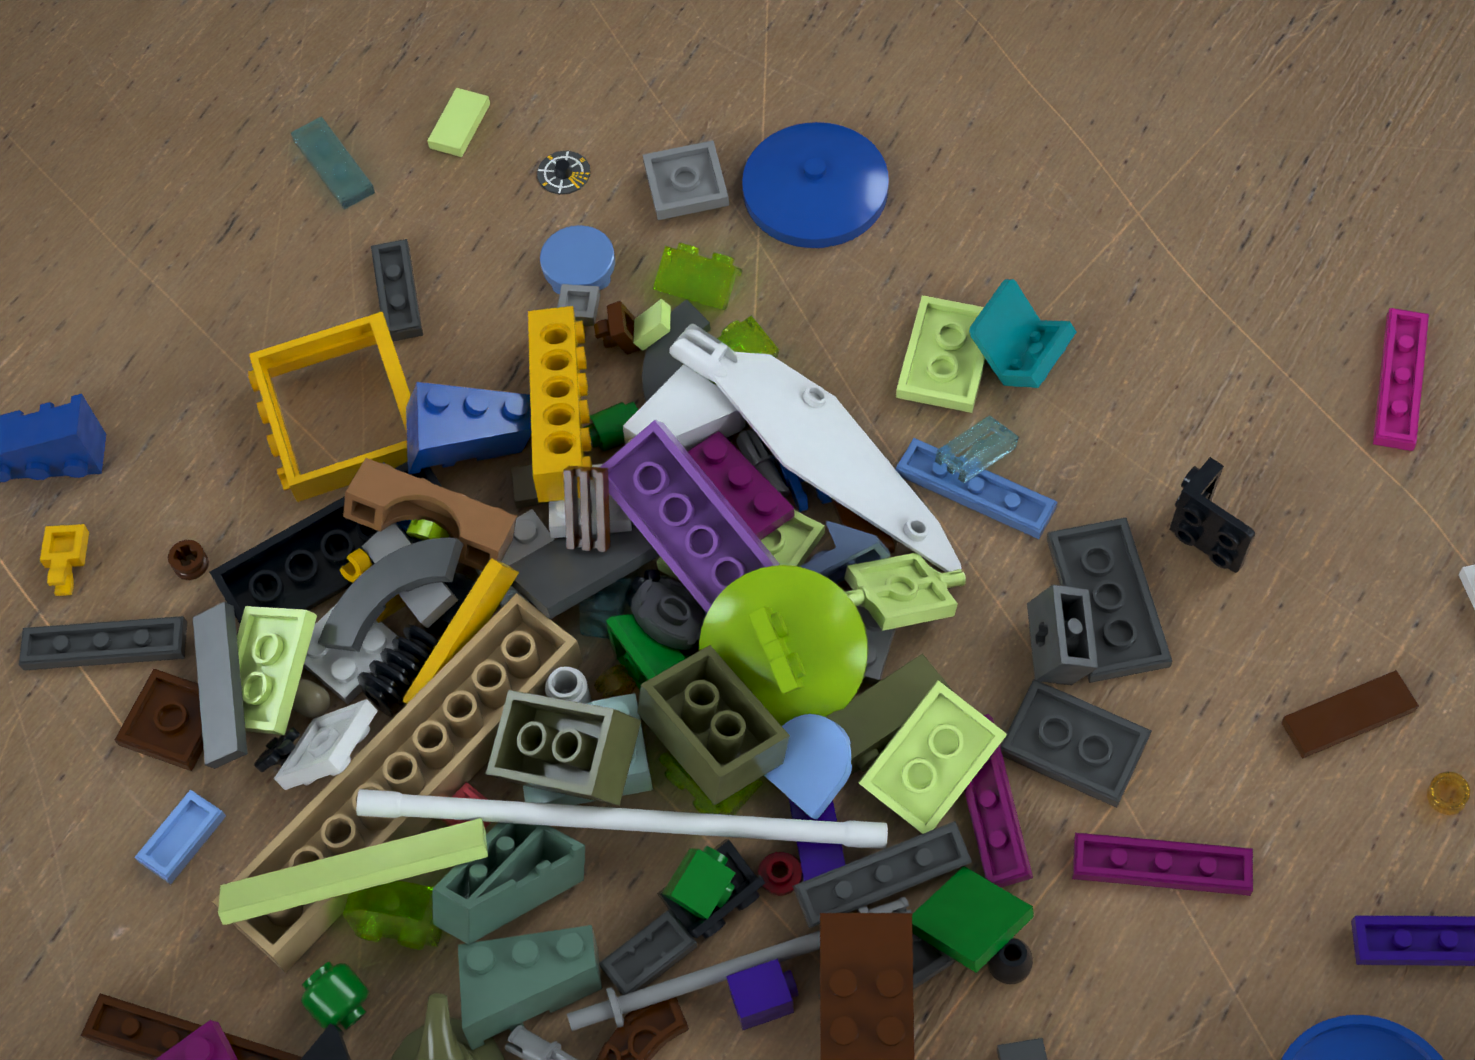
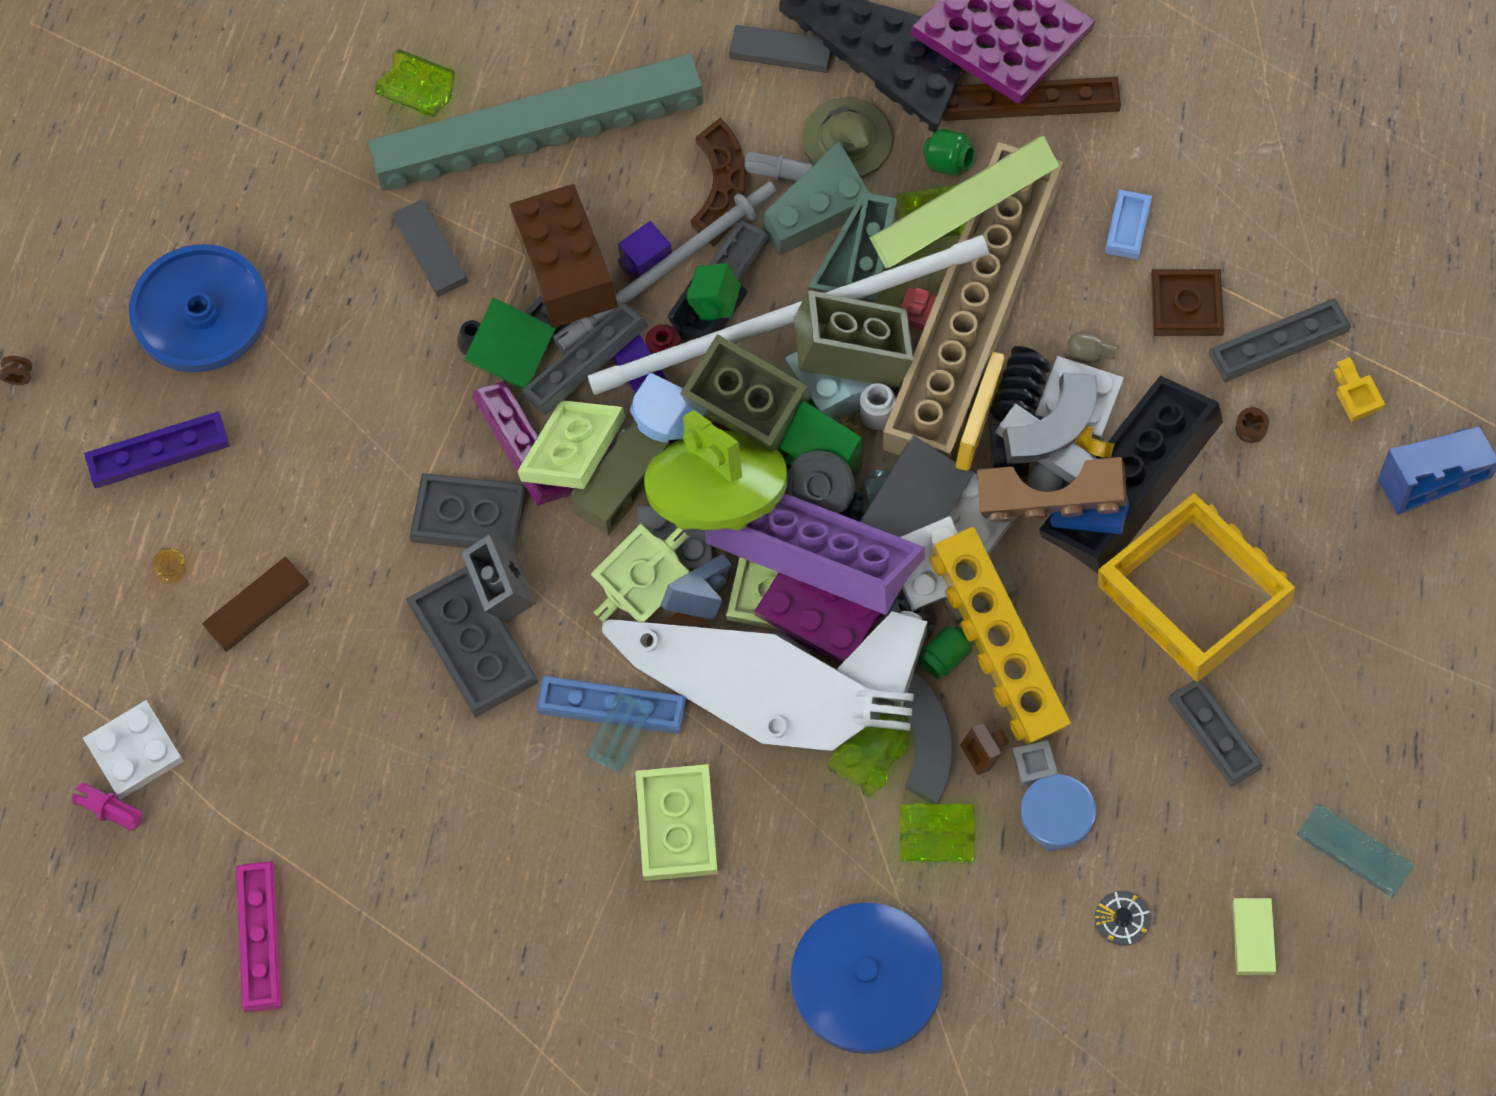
camera: 160 degrees right, 5 degrees up
(219, 685) = (1157, 324): tile -> none
(271, 663) = (1127, 344): yellowish green plate -> none
(277, 750) = (1085, 298): black plant -> none
(326, 745) = (1043, 299): white plate -> none
(425, 530) = (1050, 476): lime tile -> none
(464, 424) = (1069, 586): blue wedge -> none
(573, 540) = (925, 522): tile -> none
(652, 324) = (954, 758): yellowish green tile -> none
(685, 180) = (993, 934): light grey plate -> none
(1016, 340) = (608, 845): teal bracket -> none
(1163, 864) = (378, 443): magenta tile -> none
(1207, 525) = (416, 721): black bracket -> none

